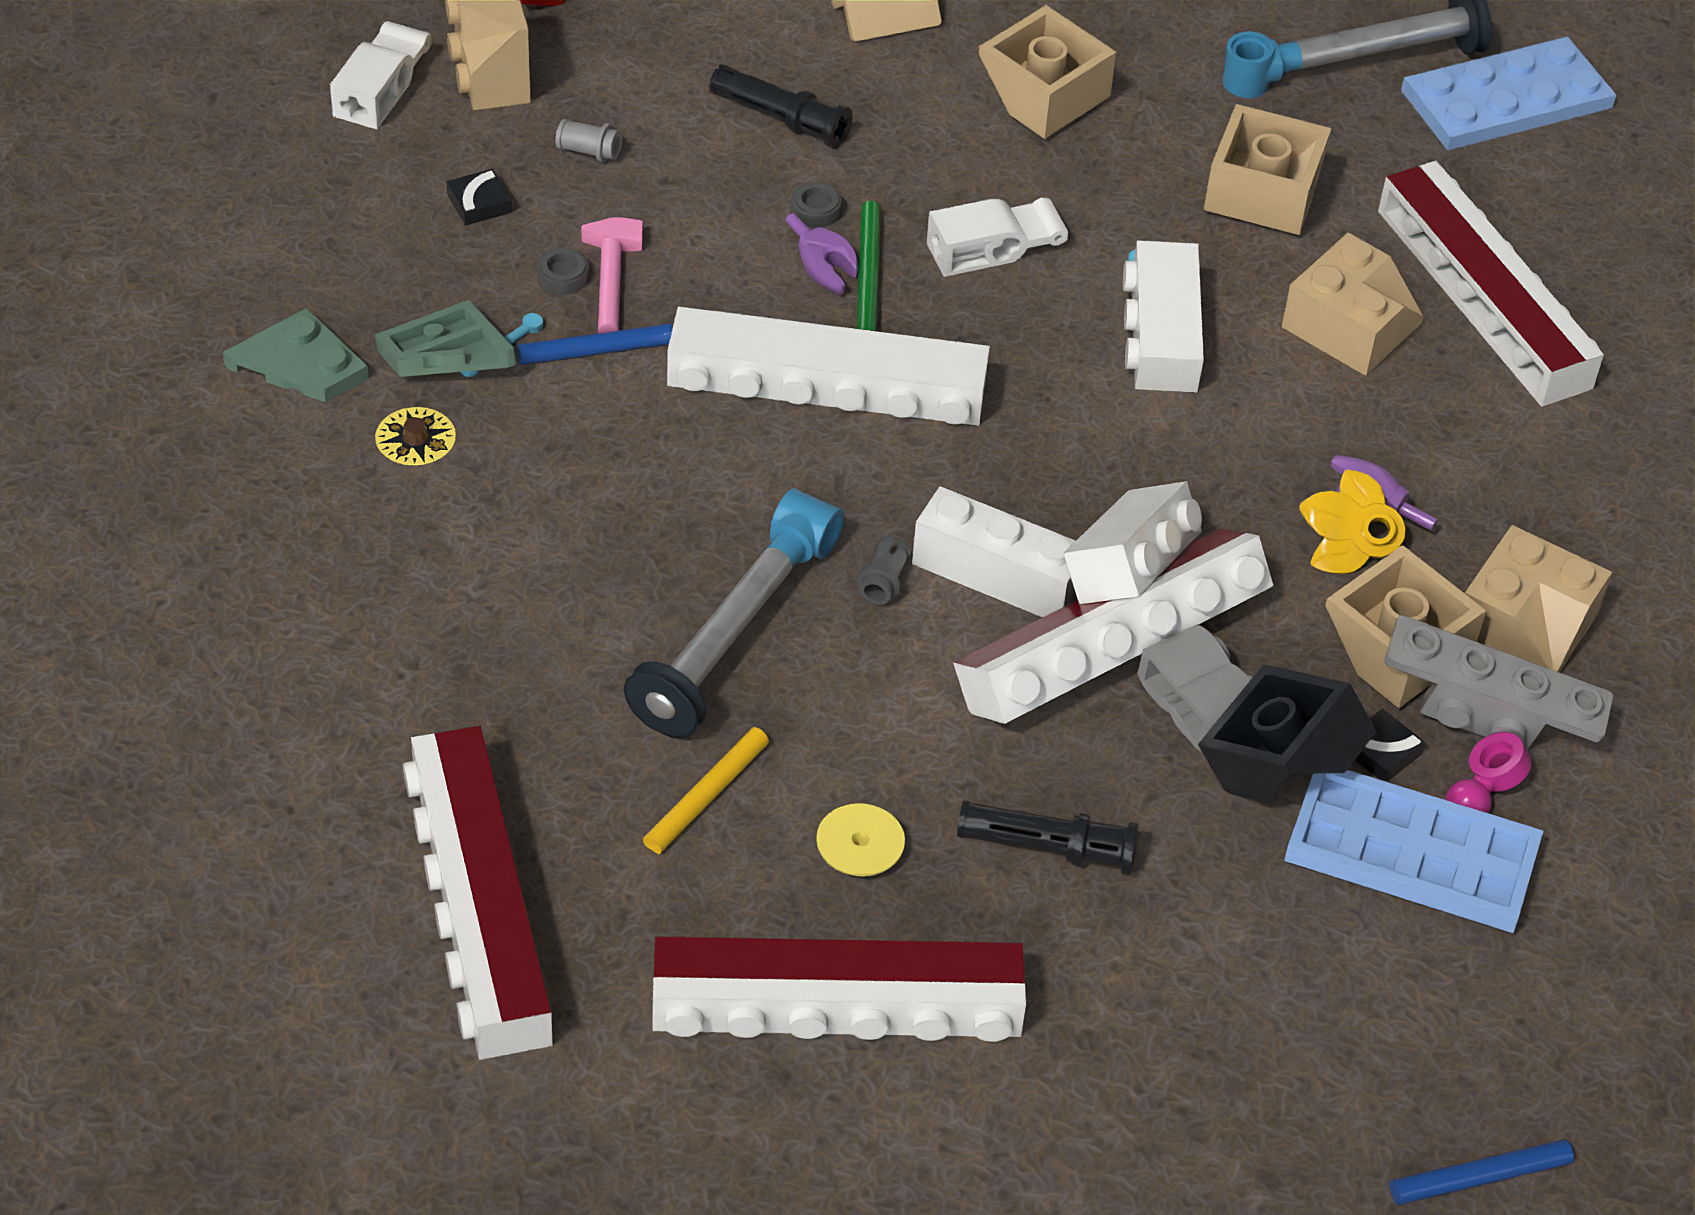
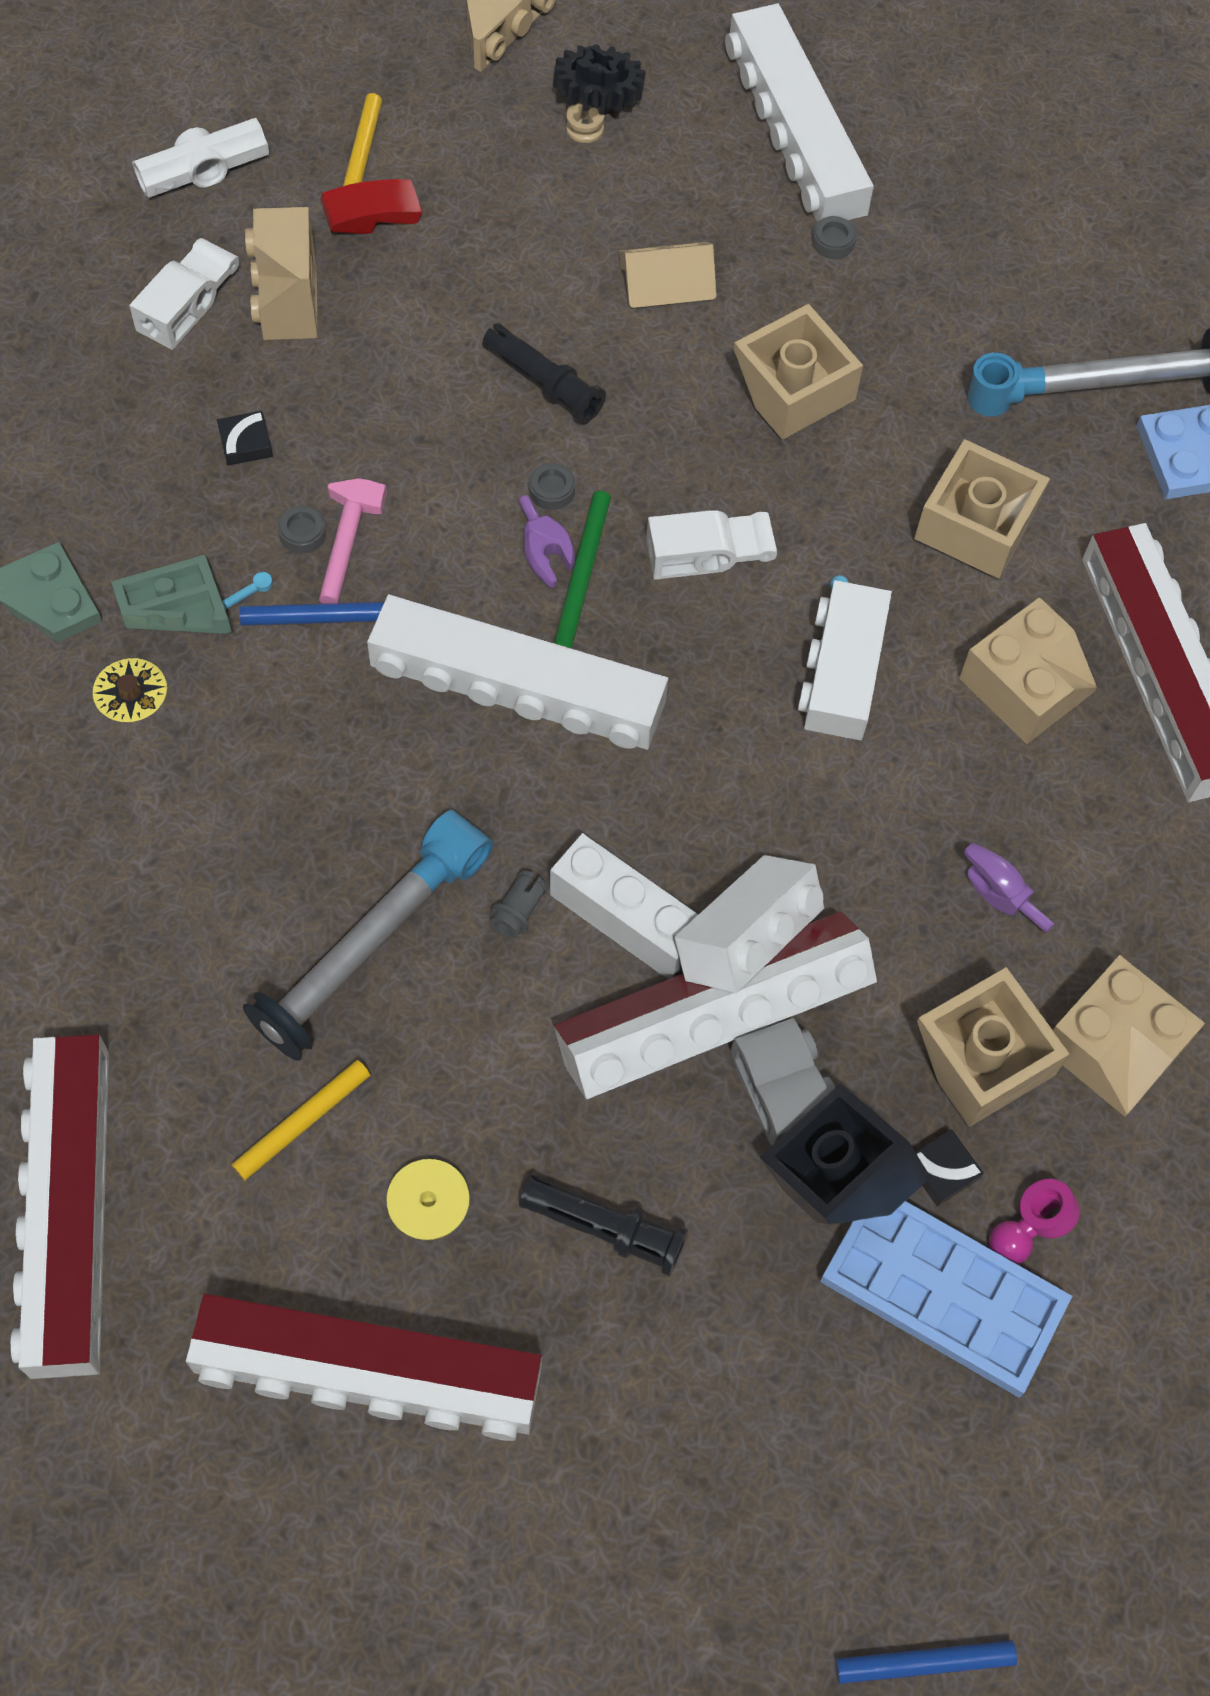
camera: 10 degrees right, 15 degrees up
(589, 139) = (367, 393): light grey pin -> none
(1344, 522) = (962, 917): yellow plate -> none
(1494, 690) = (1060, 1136): light grey bracket -> none

